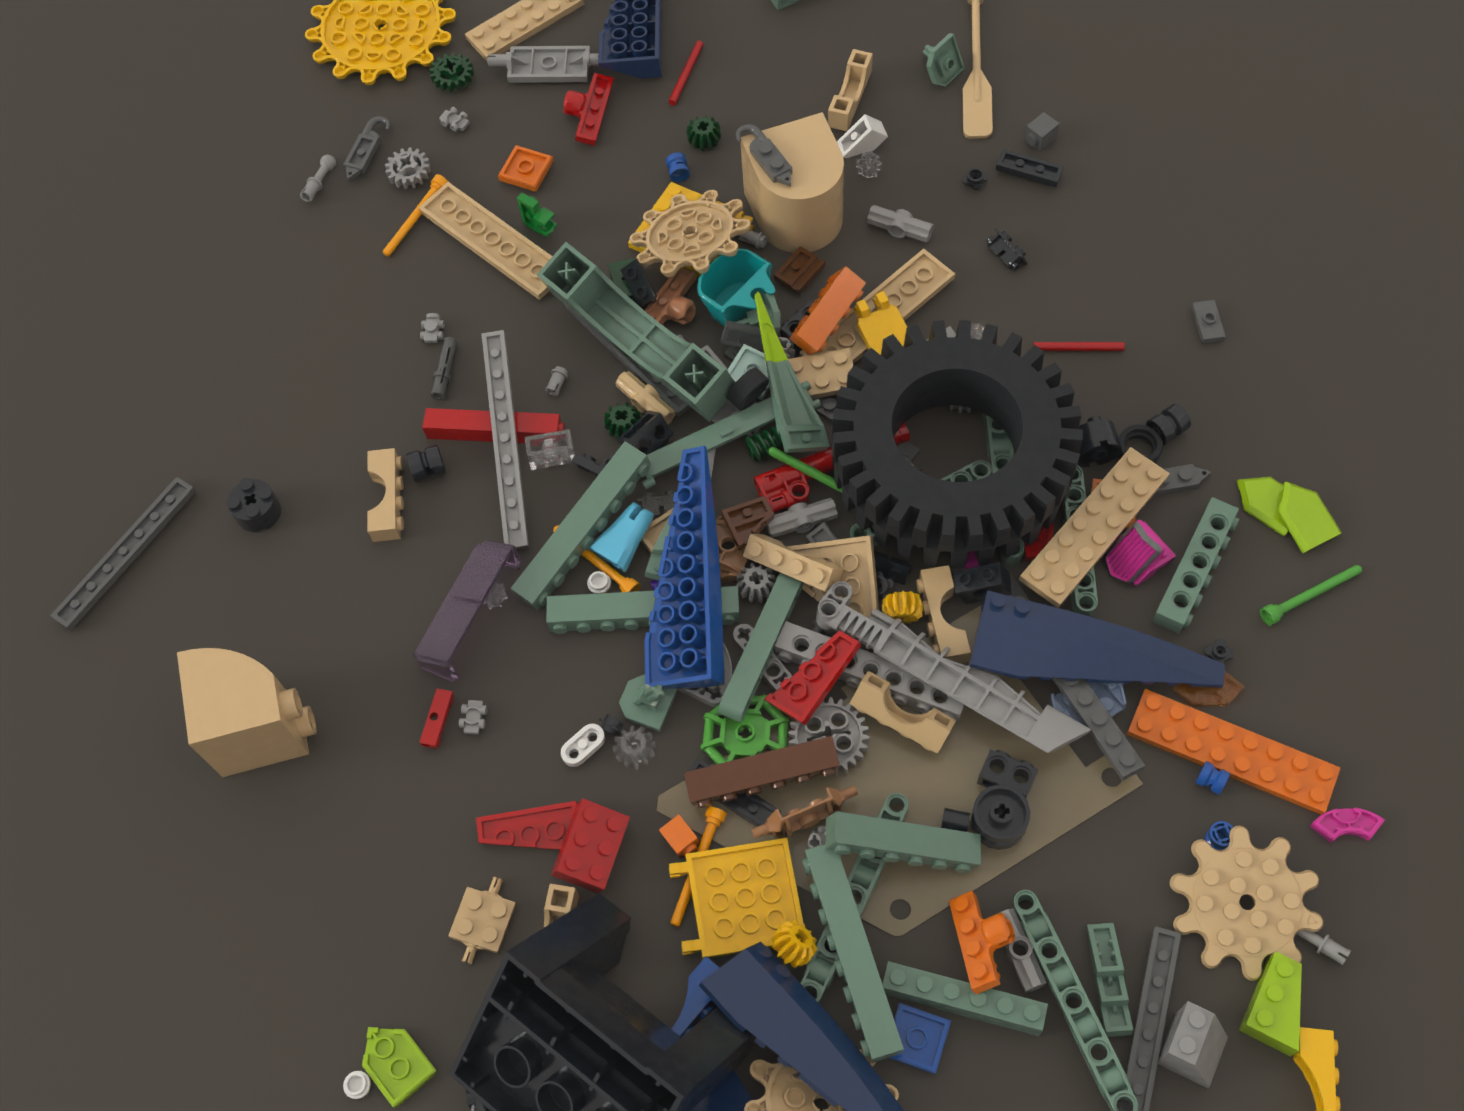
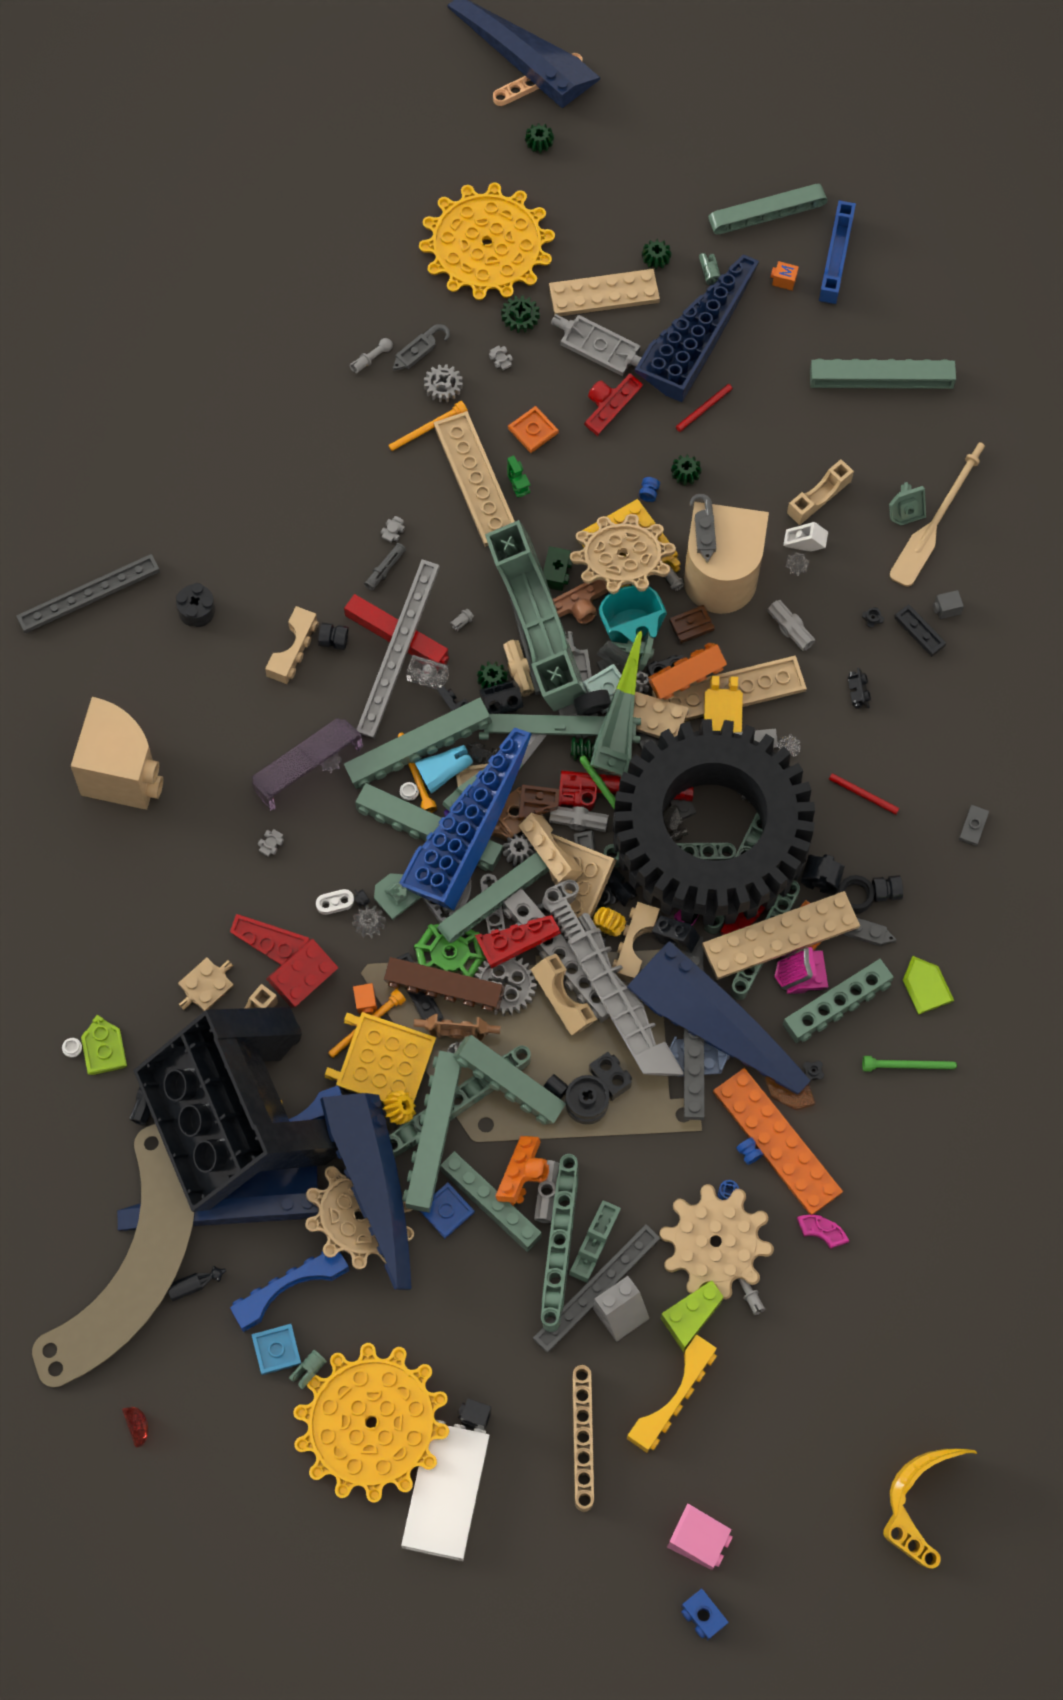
camera: 20 degrees right, 5 degrees up
(434, 728) = (239, 837): red piece -> none
(638, 283) = (562, 574): black hinge -> none
(1306, 517) = (941, 1009): lime tile -> none

